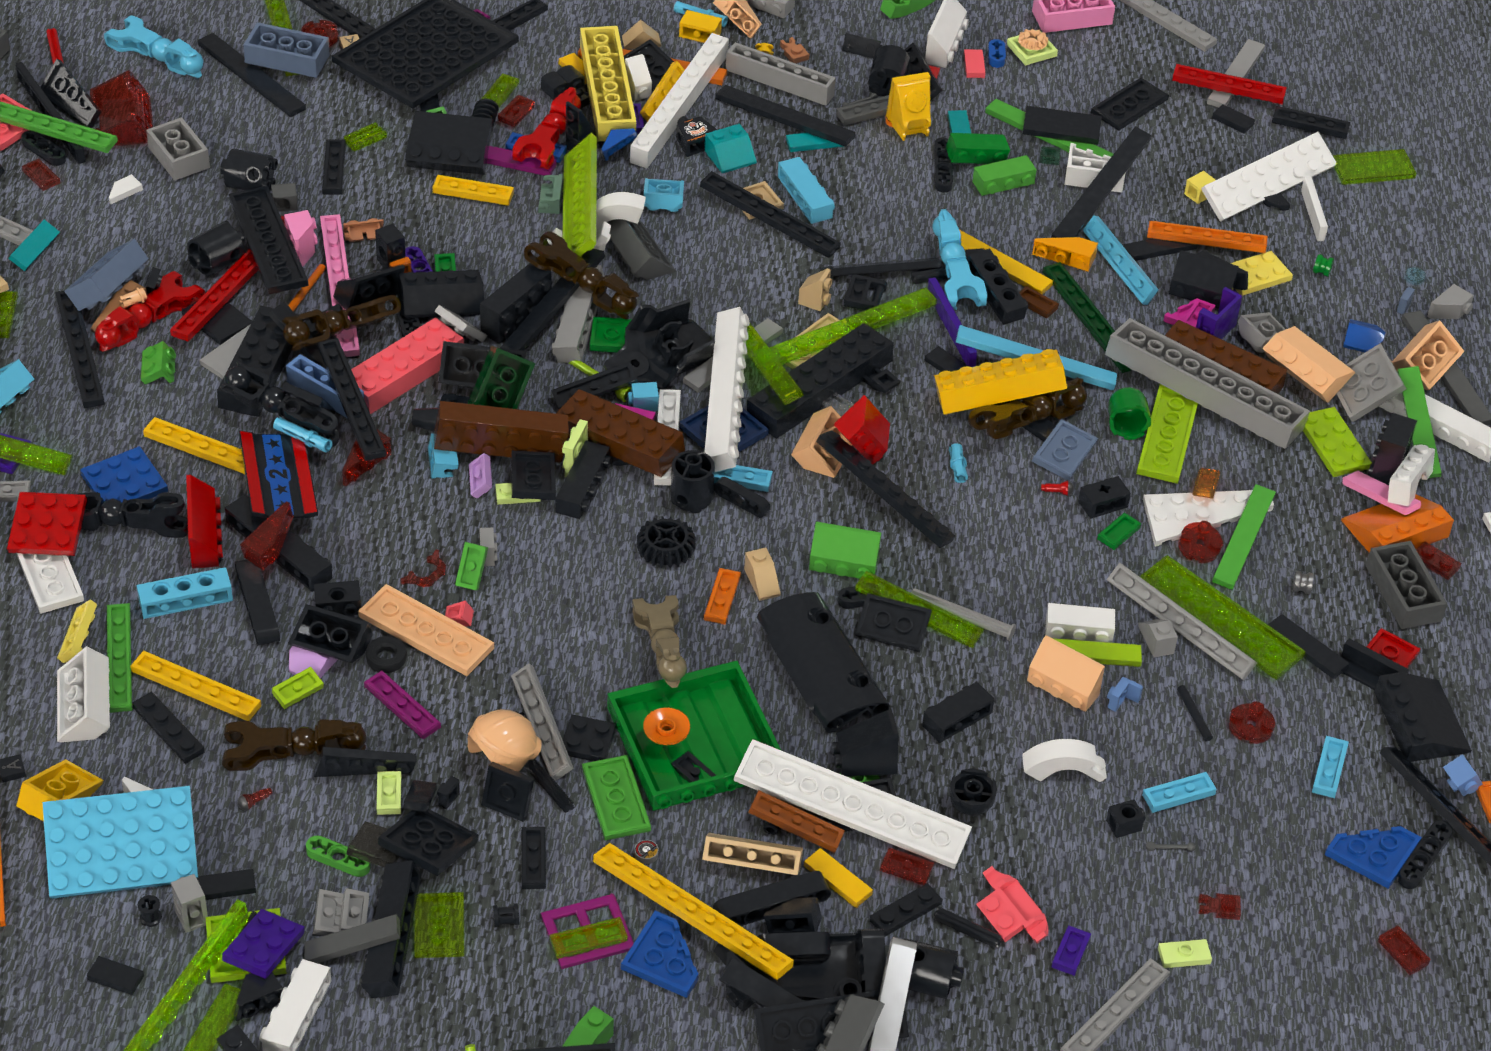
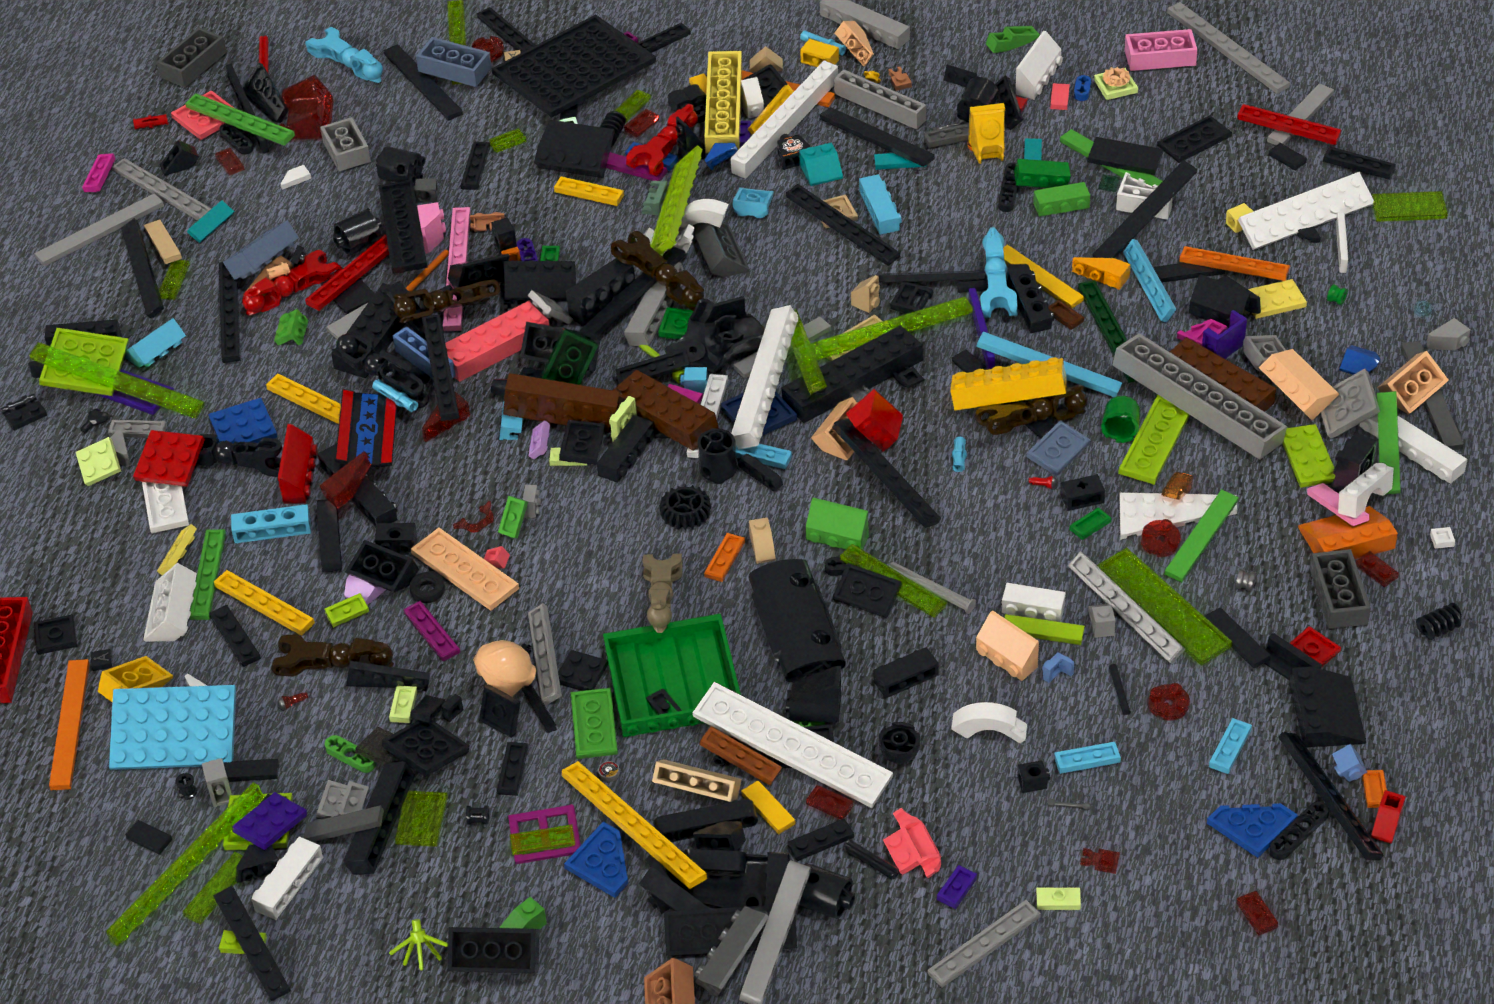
camera: 15 degrees right, 0 degrees up
(666, 726) = (644, 665): orange dish -> none
(1405, 300) = (1407, 331): sand blue tile -> none

